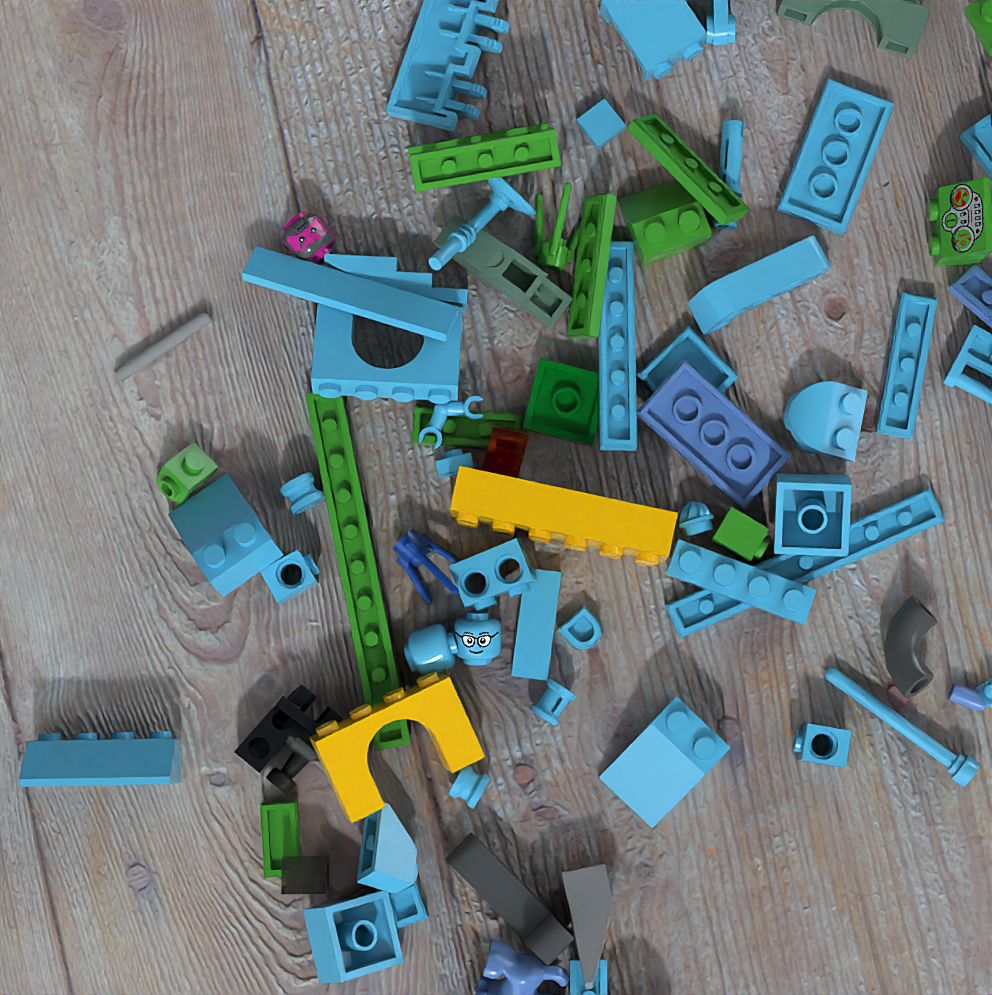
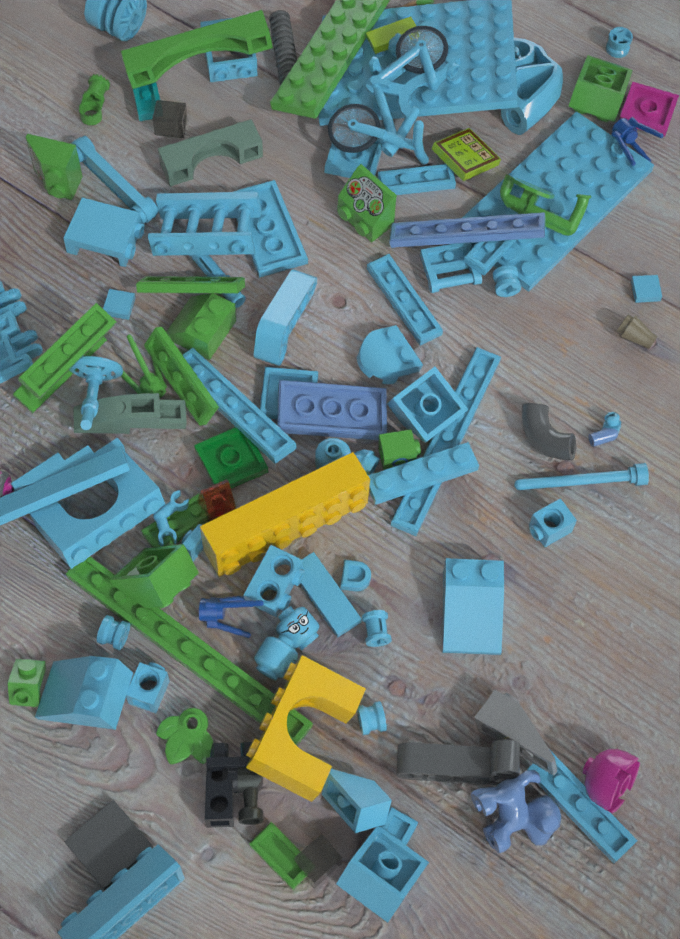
camera: 45 degrees left, 20 degrees down
(138, 694) = (108, 844): none -> dark grey tile
(282, 656) = (183, 740): none -> bright green plate
(385, 470) = (156, 575): none -> bright green slope
(655, 498) = (329, 451): none -> medium azure head
(776, 74) = (205, 206): none -> medium azure fence

